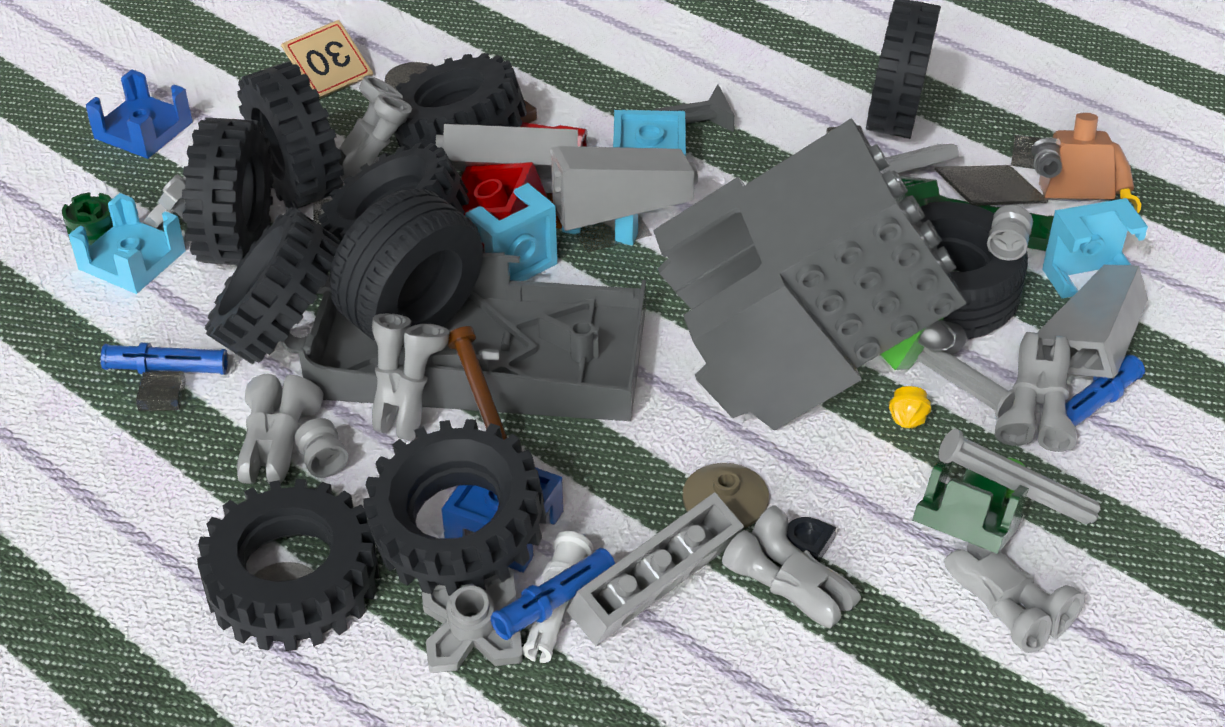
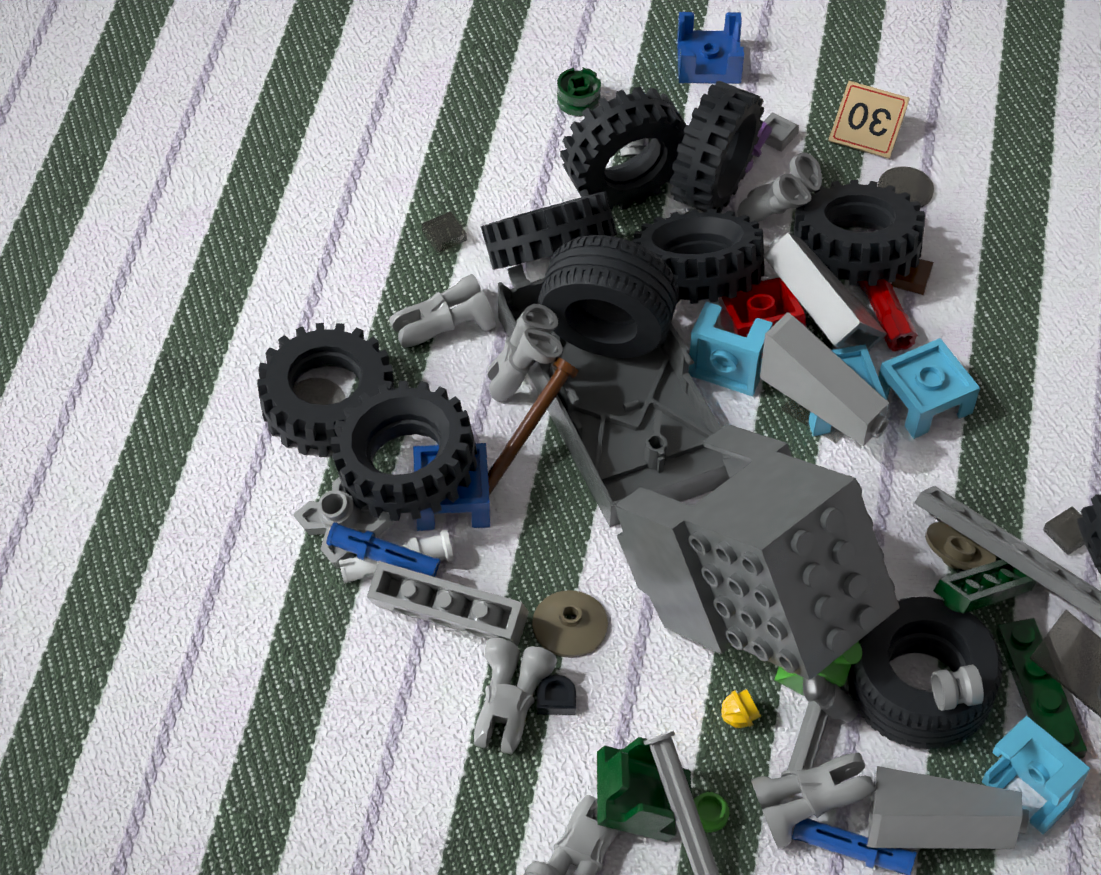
camera: 60 degrees right, 10 degrees up
(130, 251) = (553, 124): medium azure panel -> none
(148, 358) = (465, 206): blue pin -> none
(321, 447) = (441, 353): light grey wheel -> none
(714, 109) = (1031, 411): dark grey piece -> none

